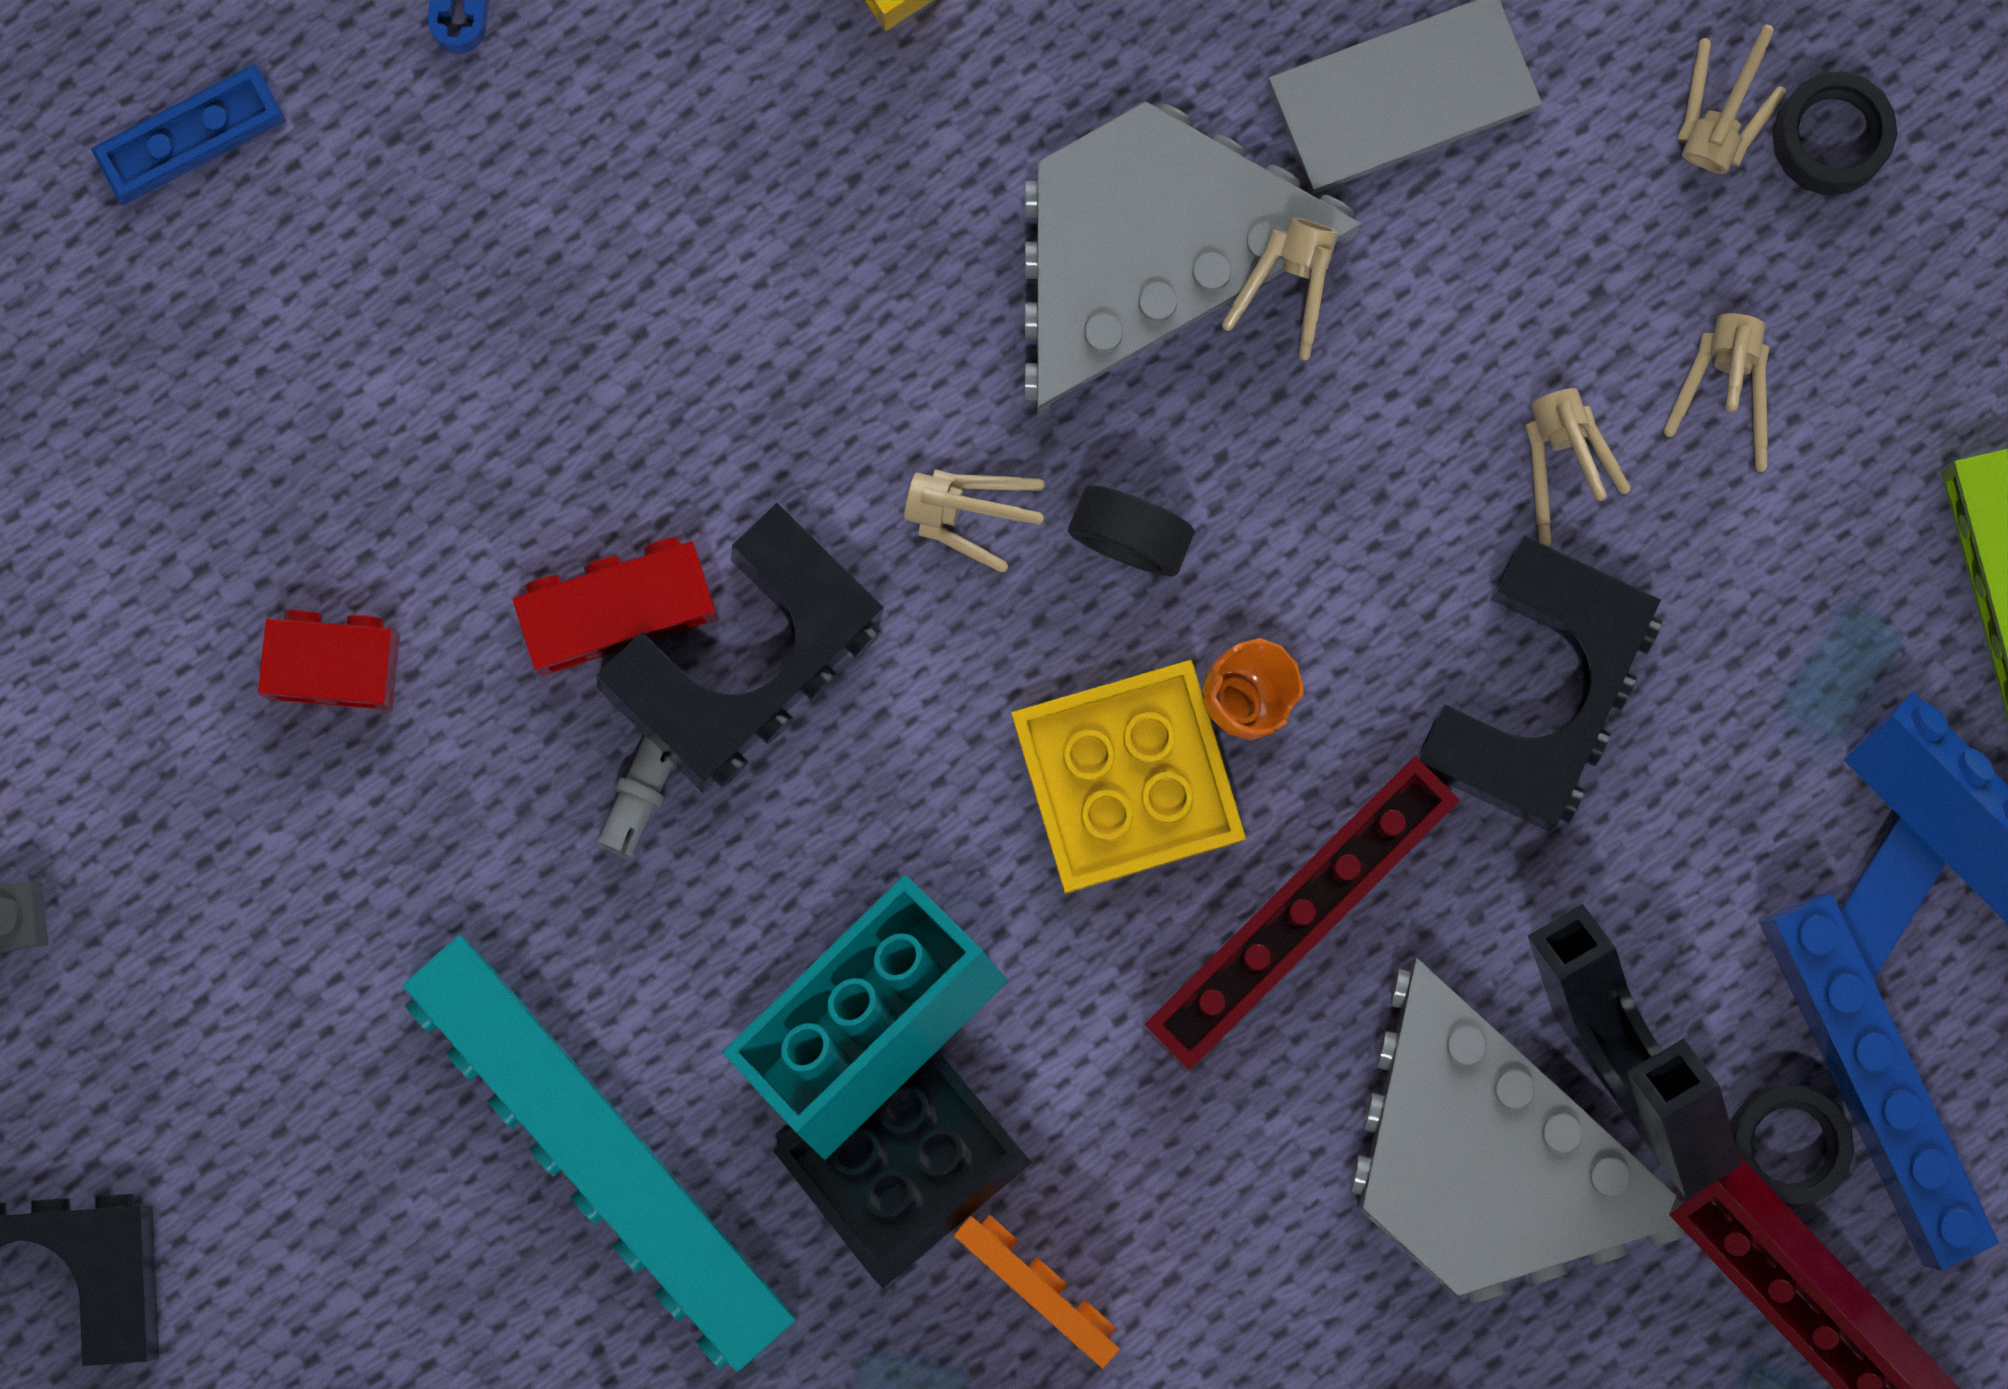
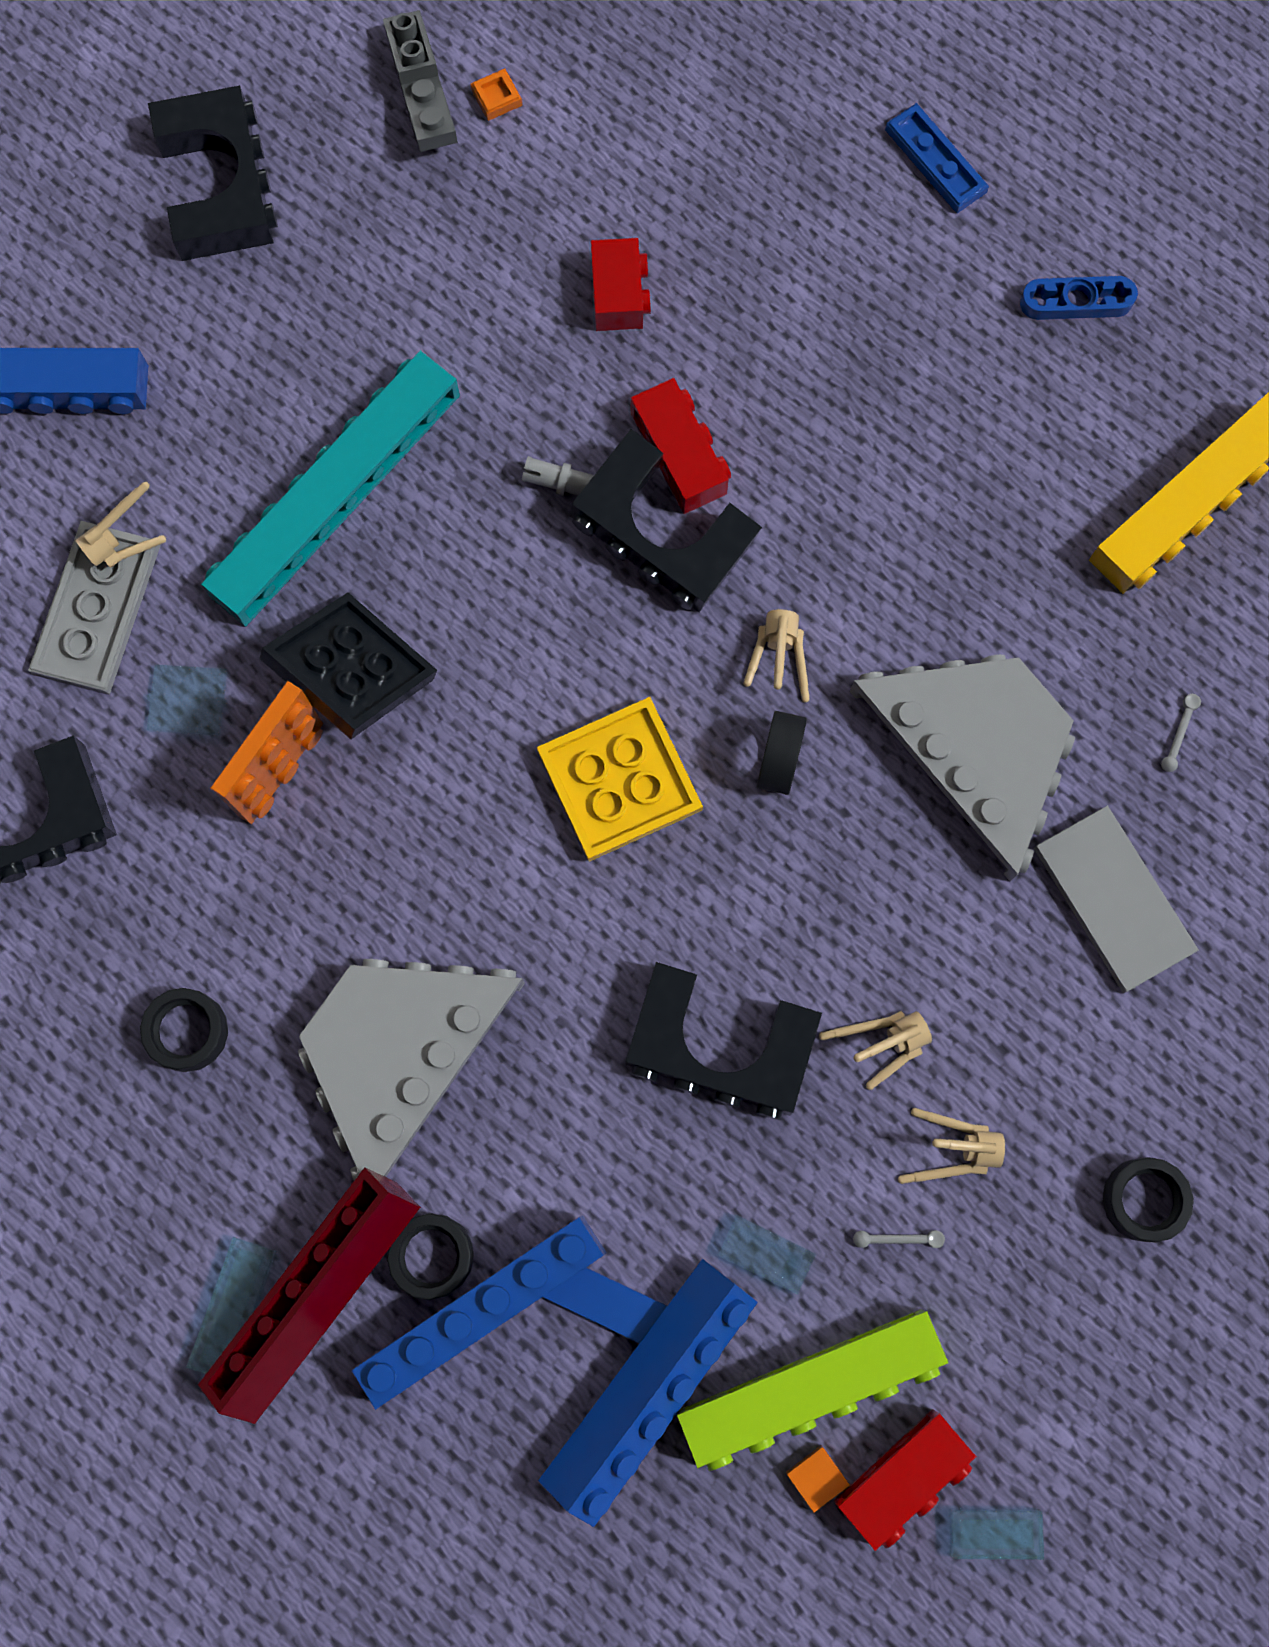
camera: 85 degrees right, 5 degrees down
(865, 1017) = (435, 628): teal brick -> none
(1252, 689) = (688, 848): orange hair -> none
(1300, 914) = (542, 898): dark red brick -> none
(1306, 254) = (988, 837): tan plant -> none
(1661, 1092) = (451, 1140): black arch -> none
(1715, 140) = (1126, 1114): tan plant -> none
(1847, 435) = (933, 1239): none -> light grey hinge

